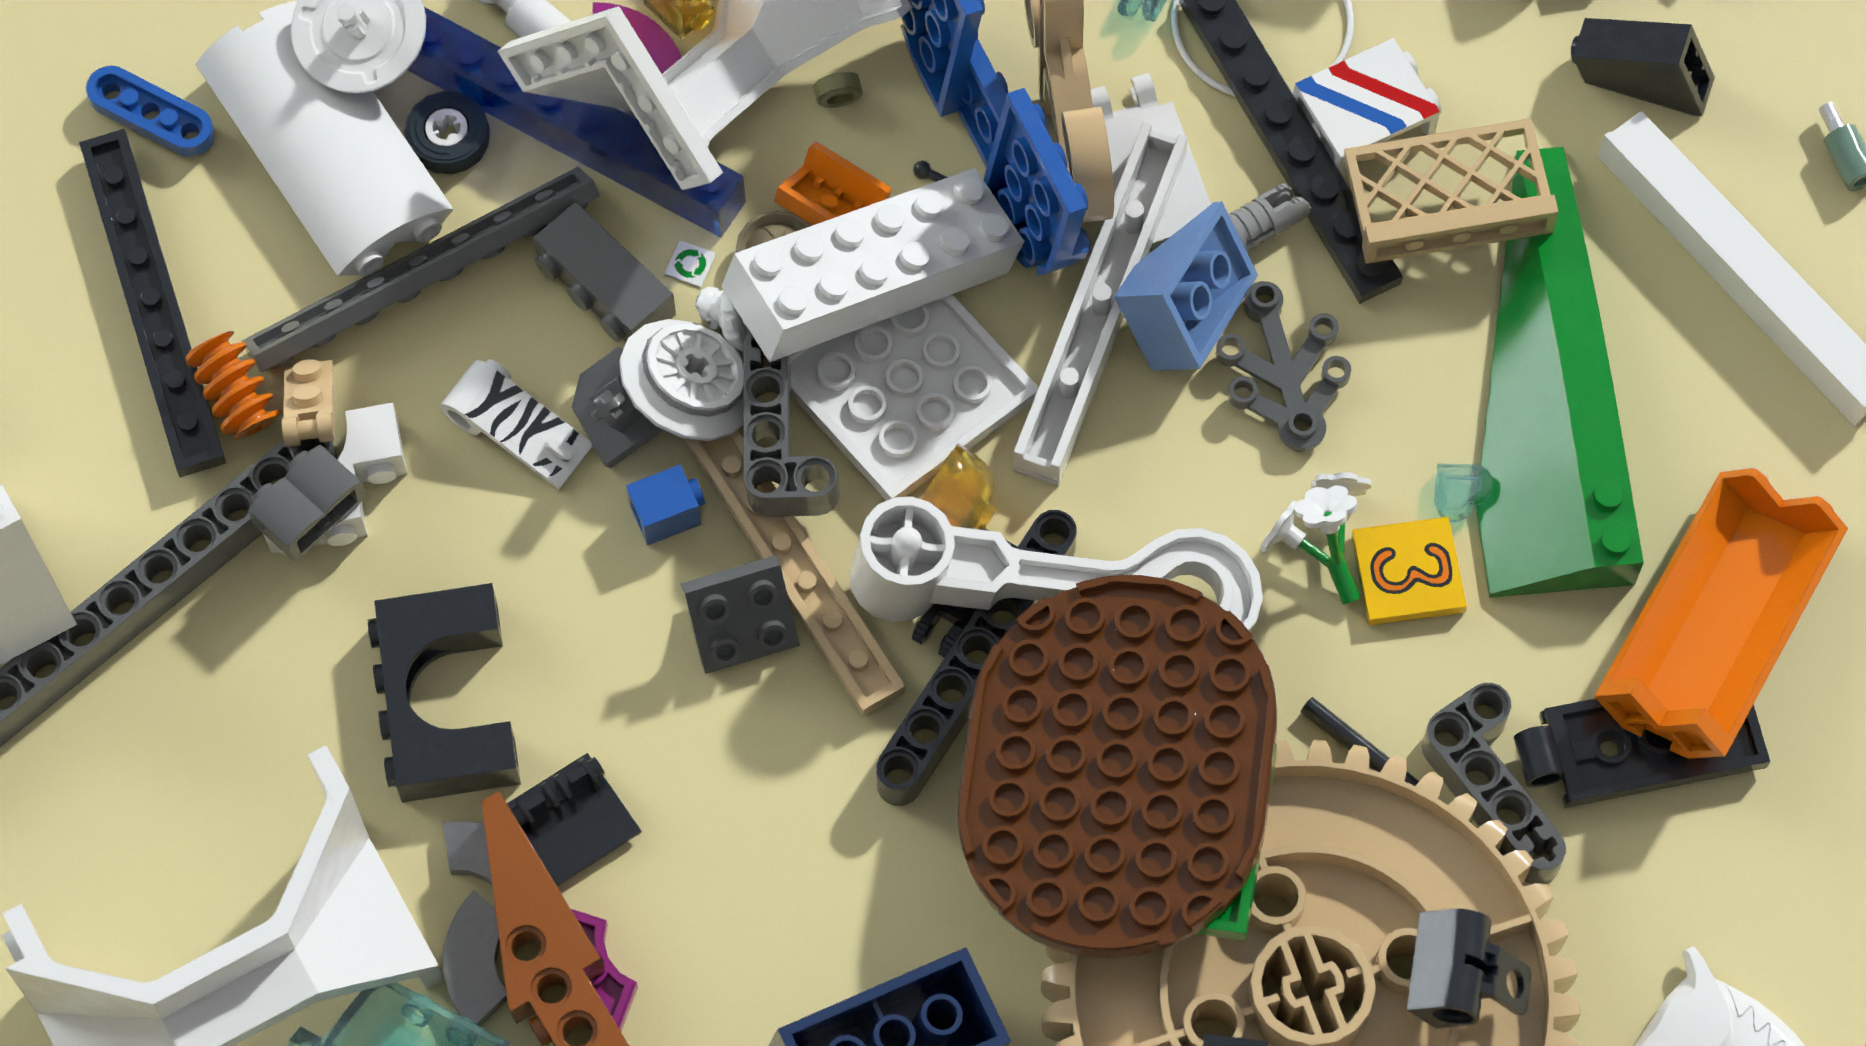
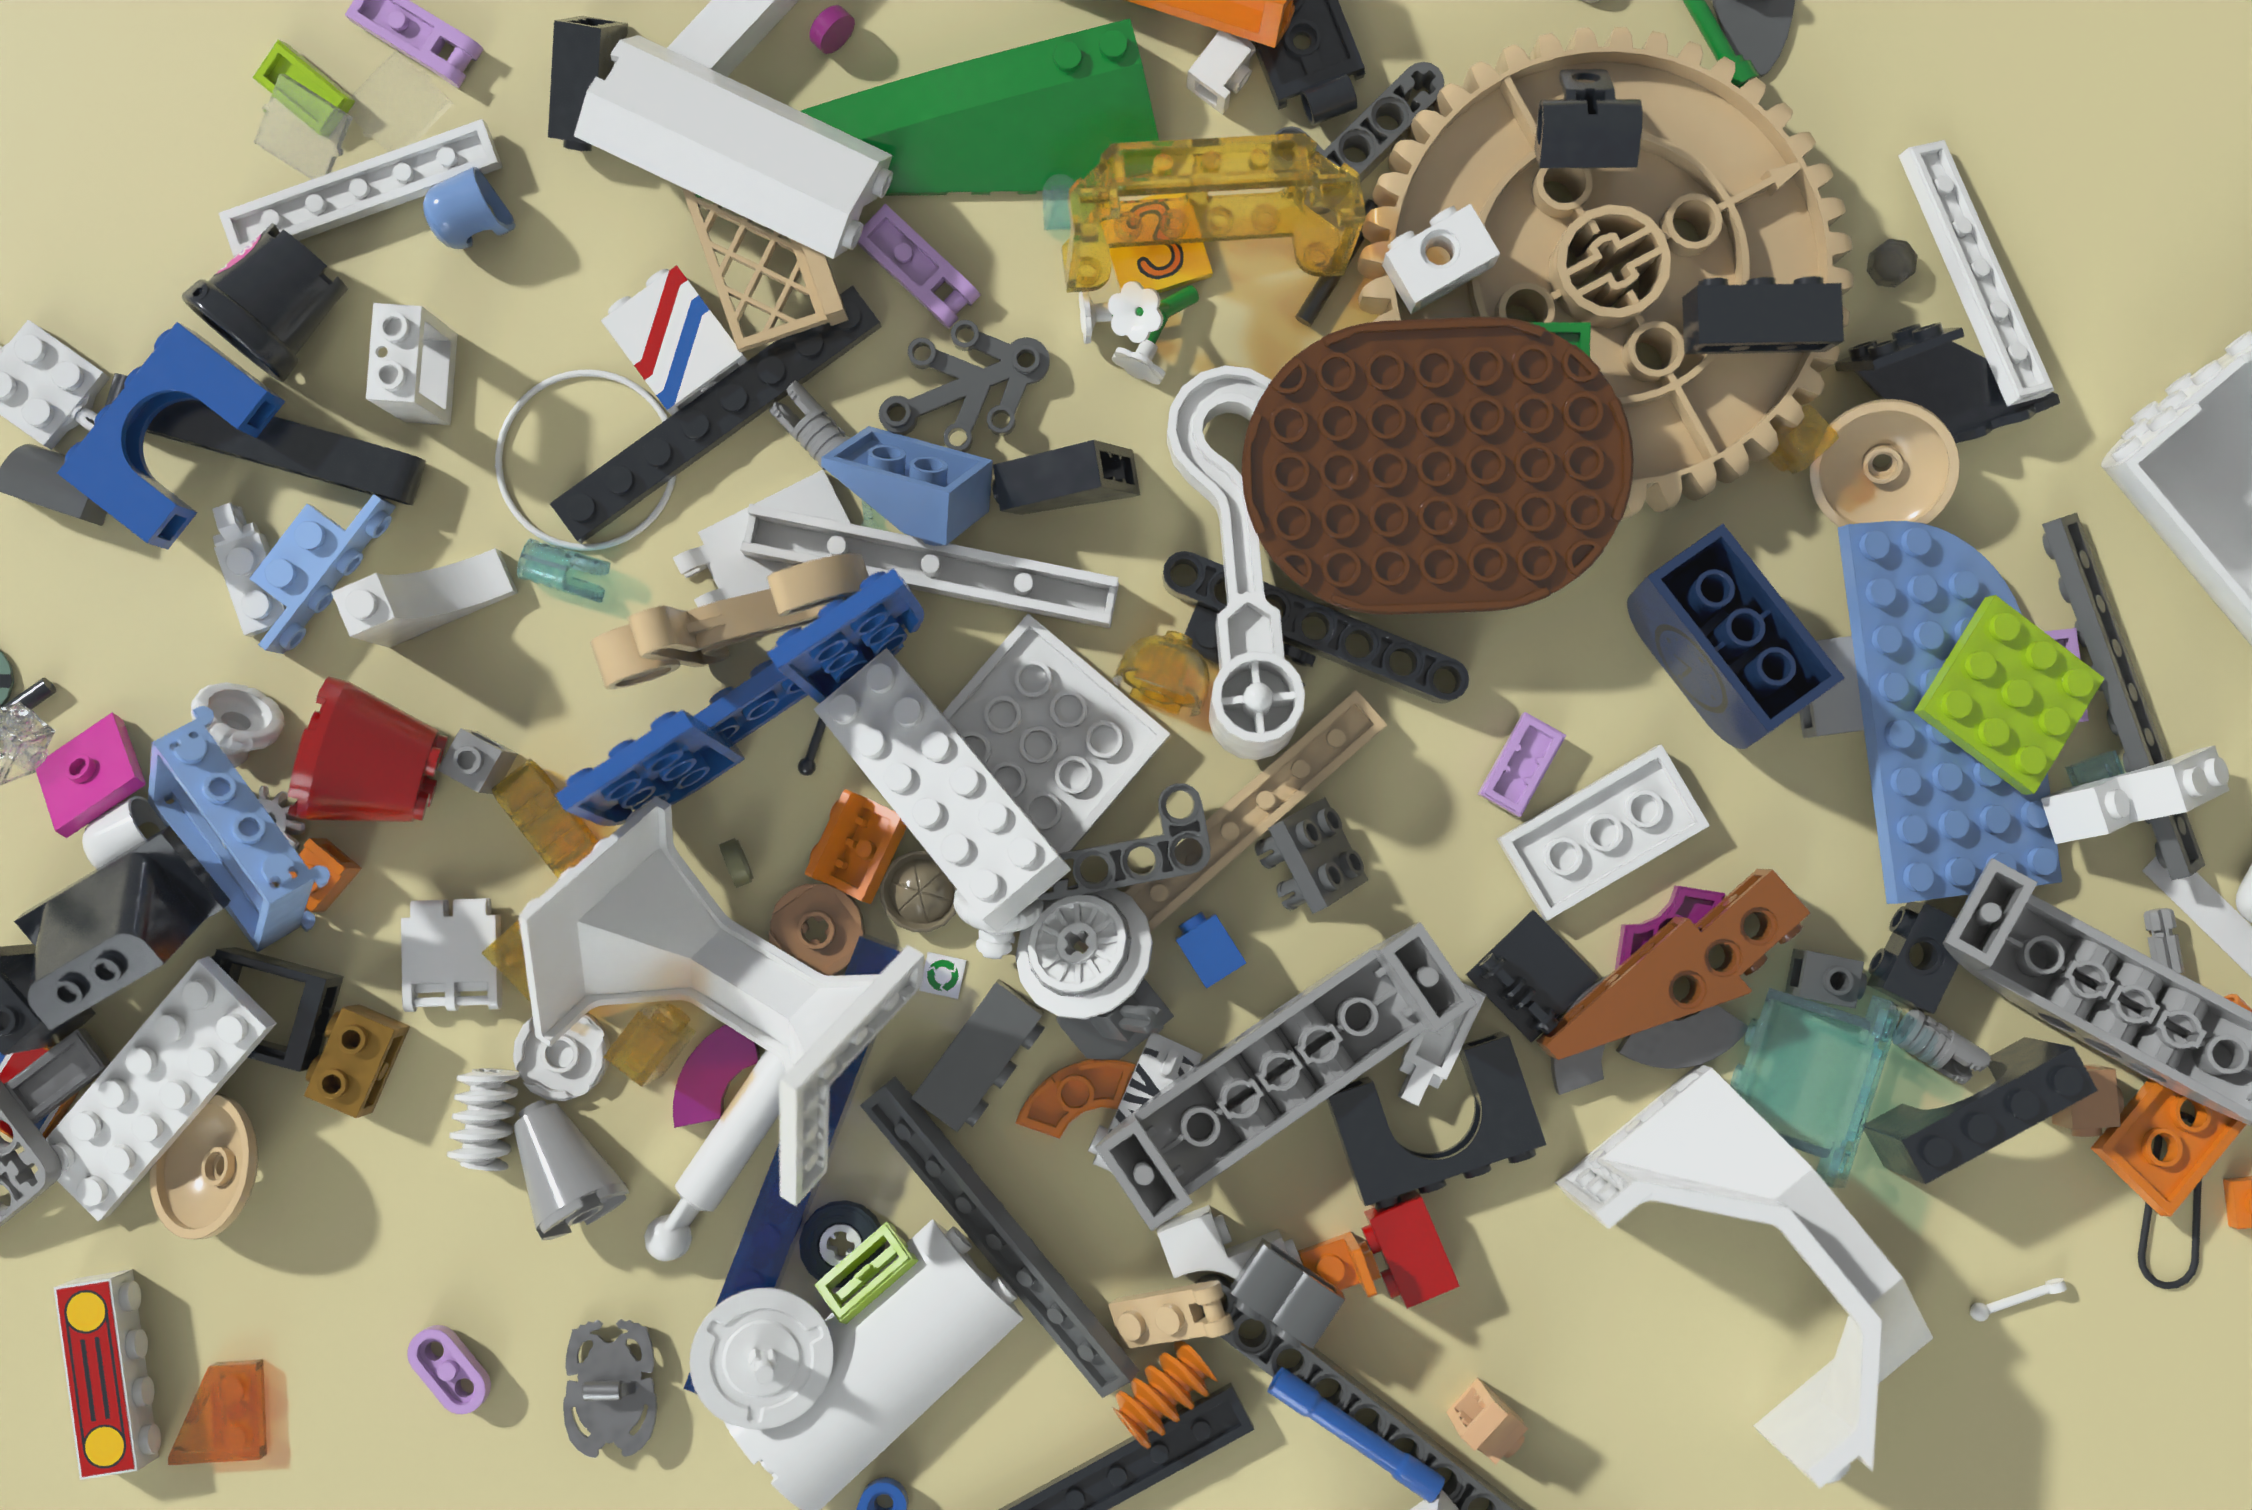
camera: 100 degrees left, 20 degrees up
(108, 587) = (1401, 1465): none -> blue piece
(126, 688) = (1487, 1422): none -> light nougat arch
(318, 647) = (1410, 1249): none -> red brick
(319, 580) = (1343, 1262): none -> orange bracket
(408, 139) = (877, 1286): none -> lime tile
(521, 519) = (1281, 1070): none -> light grey slope
(533, 712) = (1433, 1054): none -> white hinge
(547, 359) = (1074, 1091): none -> orange tile
(709, 913) = (1603, 832): none -> white plate
(767, 130) = (821, 903): none -> medium nougat plate
(796, 842) = (1521, 764): none -> lavender plate
(1171, 443) = (1065, 478): none -> black slope
(1338, 830) = (1422, 281): none -> white brick
(1415, 338) = (916, 265): none -> lavender plate
(1442, 582) = (1207, 166): none -> clear yellow windscreen
(1549, 172) = (734, 146): none -> white panel
(1582, 656) = (1220, 69): none -> white brick
(1671, 294) = (831, 29): none -> magenta tile

